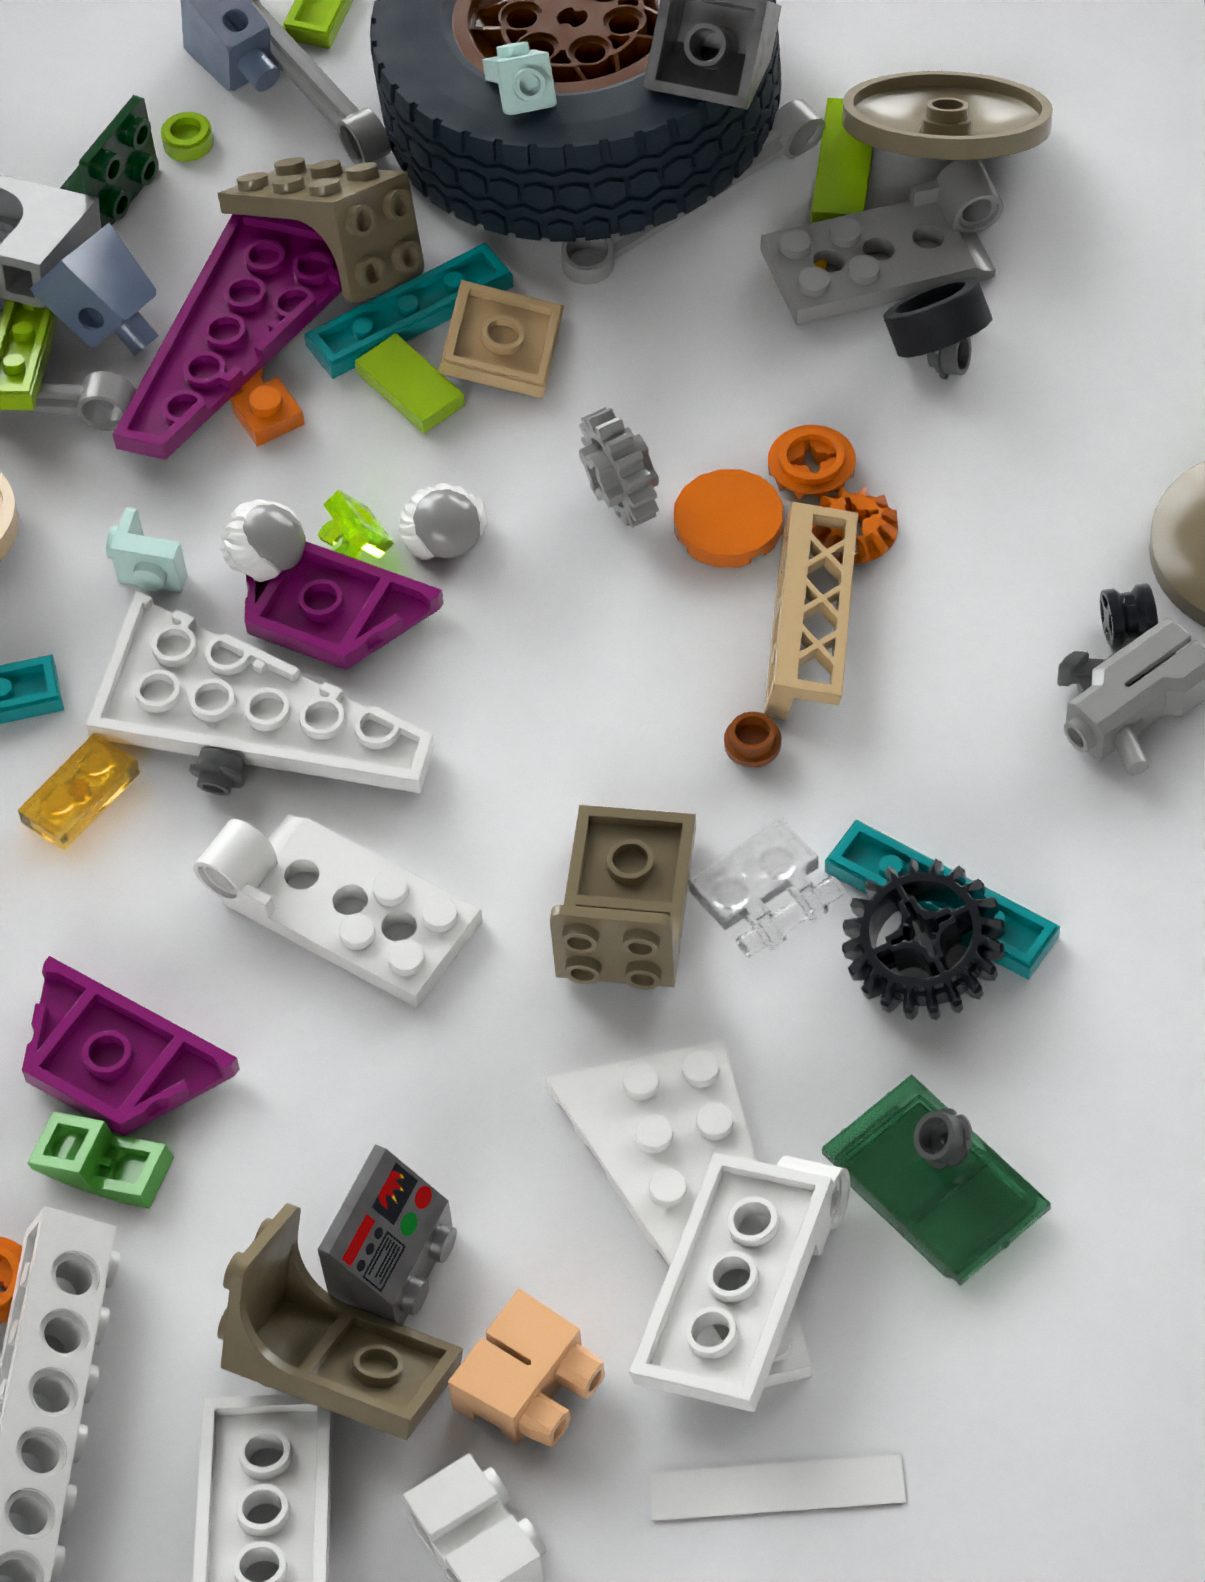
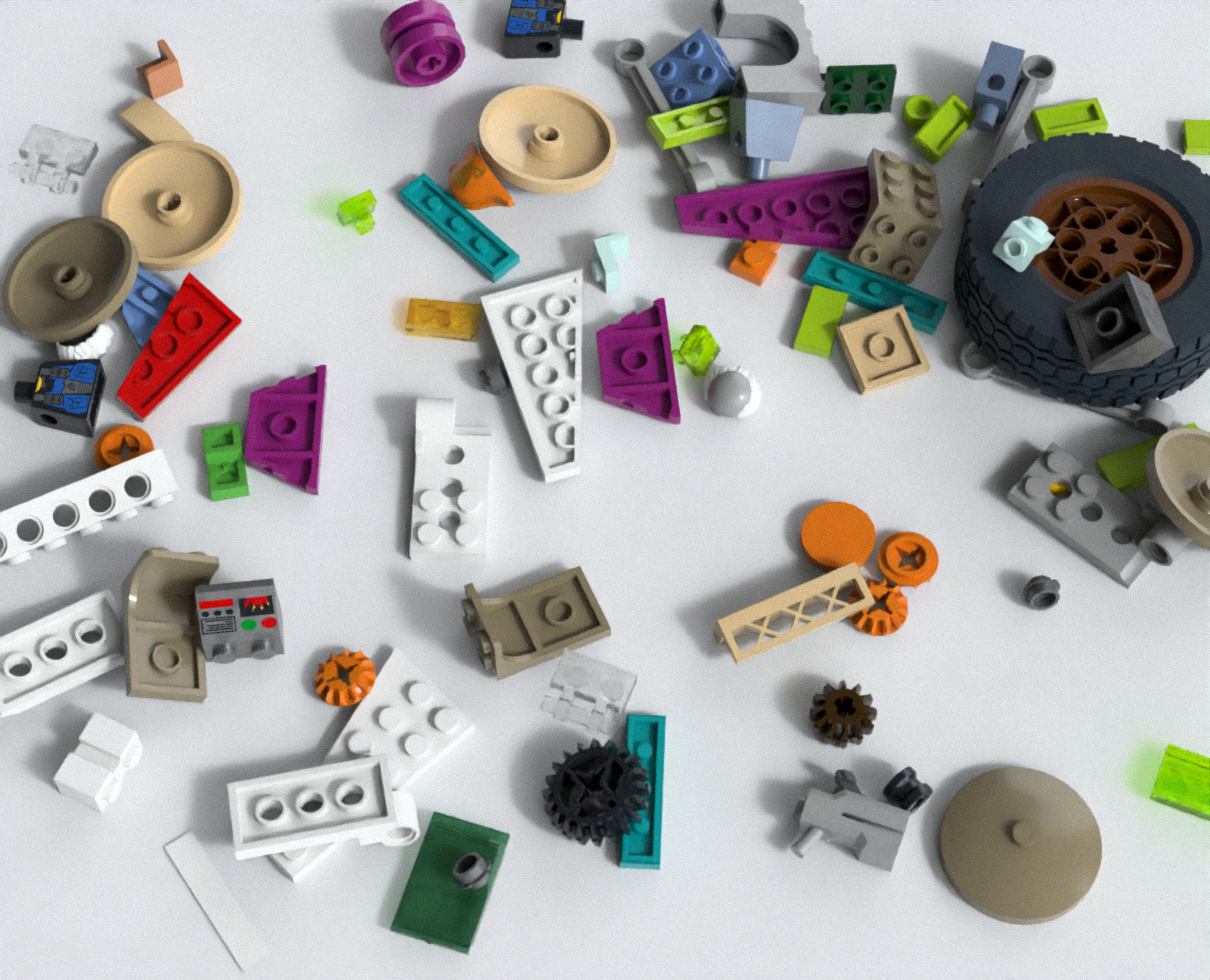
camera: 55 degrees right, 5 degrees up
(234, 122) = (943, 128): none -> lime tile
(262, 539) = (650, 309): hair -> none
(521, 1370) = (207, 732): light nougat hips -> none
(568, 1180) = (333, 690): none -> orange gear
(619, 467) = (817, 457): light grey gear -> none
(752, 740) = (687, 633): dark orange plate -> none
(937, 317) = (1052, 569): black tyre -> none
(981, 628) = (857, 718): none -> dark brown gear

